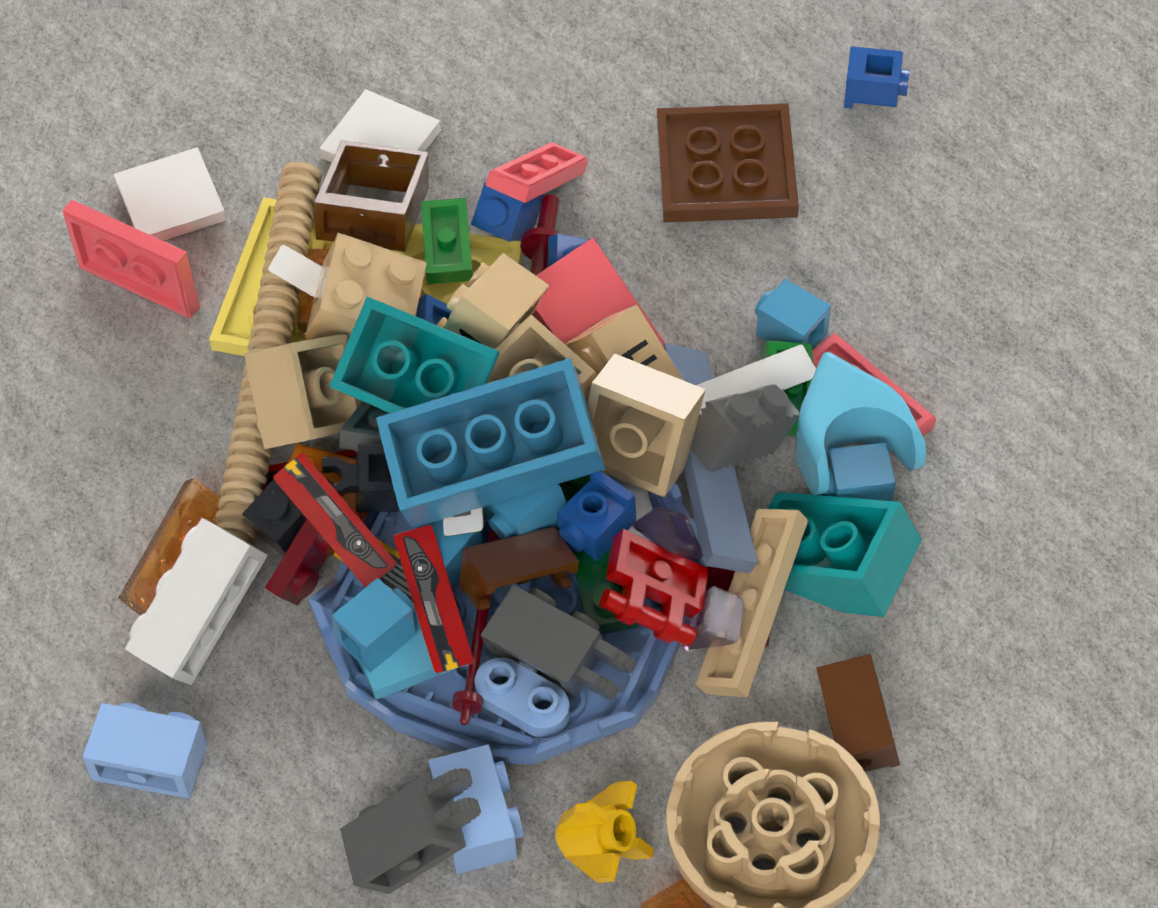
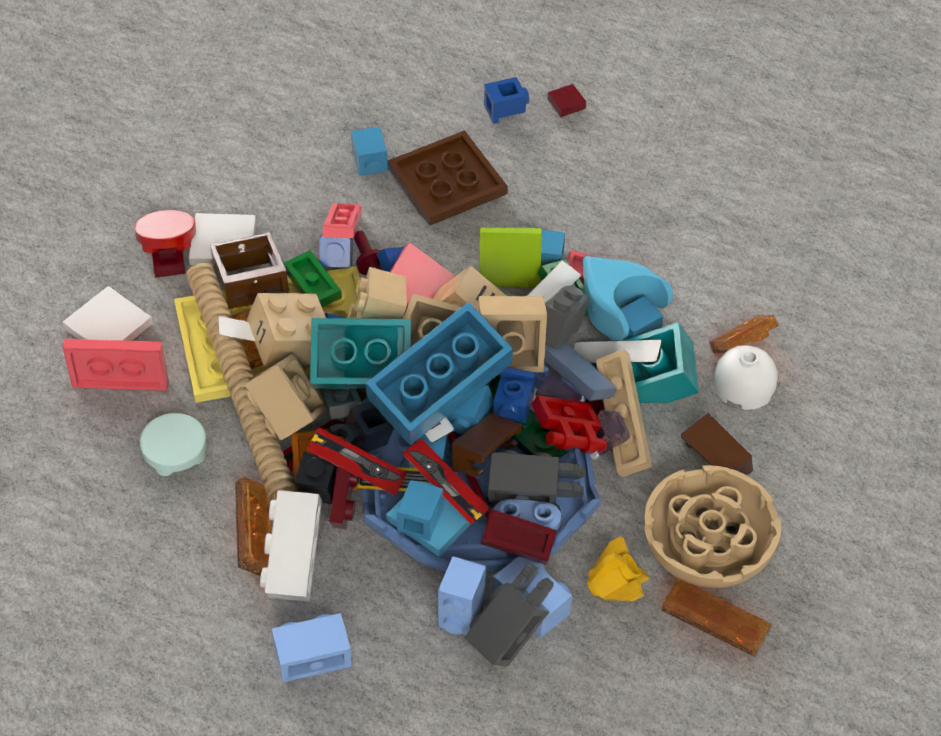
camera: 30 degrees left, 5 degrees down
(148, 394) = (173, 443): none -> light aqua tile
(295, 141) = (168, 262): none -> dark red tile
(309, 99) = (165, 230): none -> tile
(364, 766) = (461, 595): none -> light blue brick
(486, 720) = (518, 537): none -> dark red tile
(641, 85) = (369, 151): none -> dark azure brick
(730, 309) = (510, 256): none -> lime tile
(823, 517) = (639, 350): none -> white sticker
(965, 111) = (566, 100): none -> dark red tile
(970, 623) = (746, 377): none -> white cylinder
(1025, 556) = (751, 330): none -> clear orange plate

